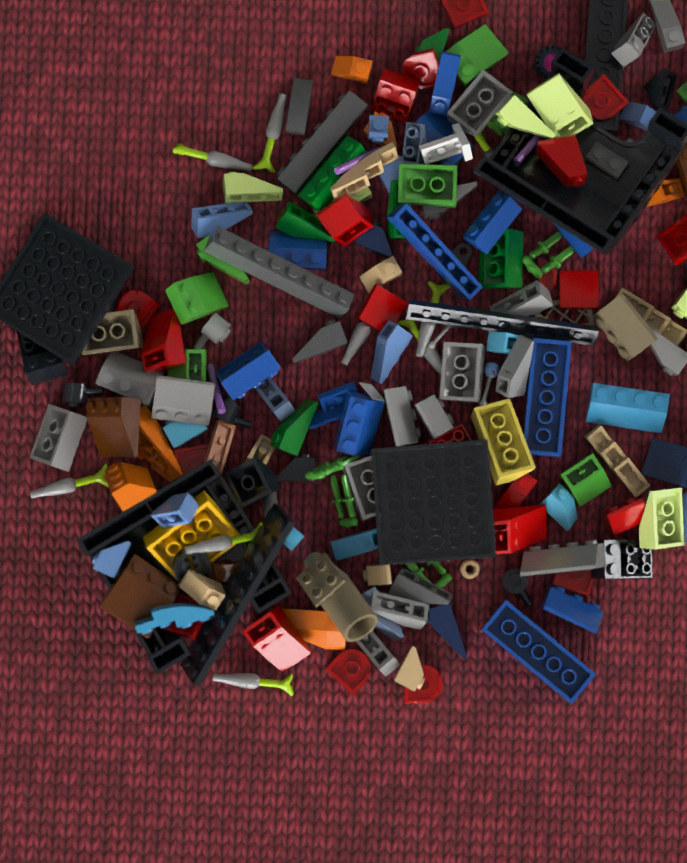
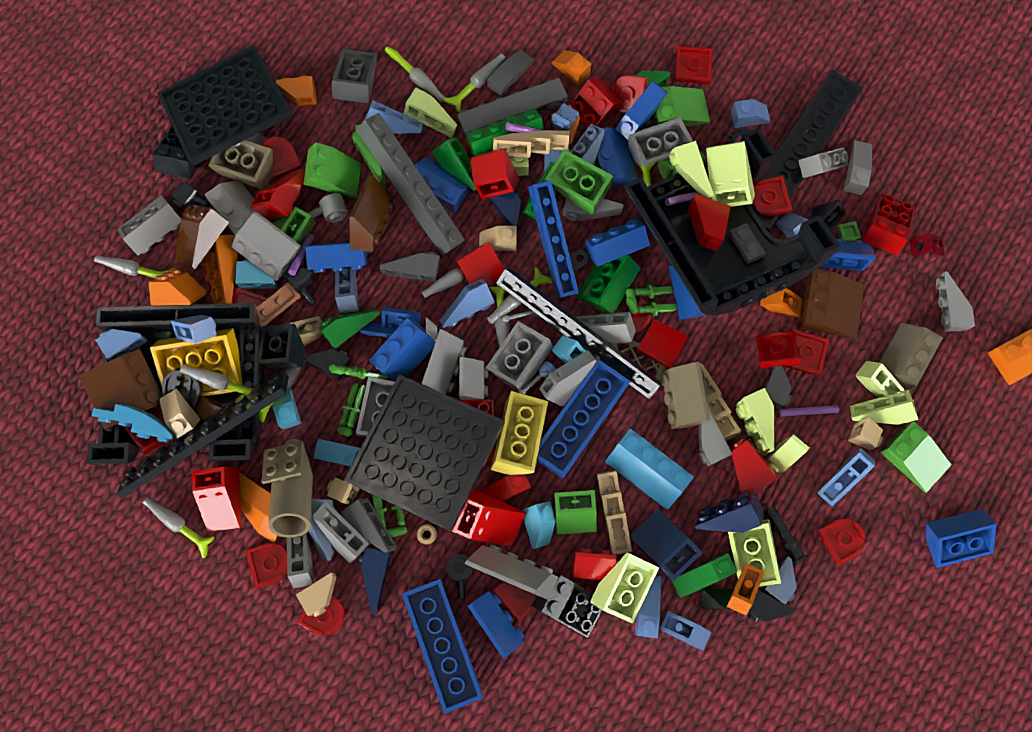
camera: 30 degrees right, 10 degrees down
(114, 234) = (299, 90): none -> orange slope
(157, 190) = (354, 76): none -> dark grey slope
(261, 321) = (370, 216): none -> reddish brown slope
(447, 147) = (612, 159): white bracket -> none
(541, 26) = (749, 113): none -> medium blue slope

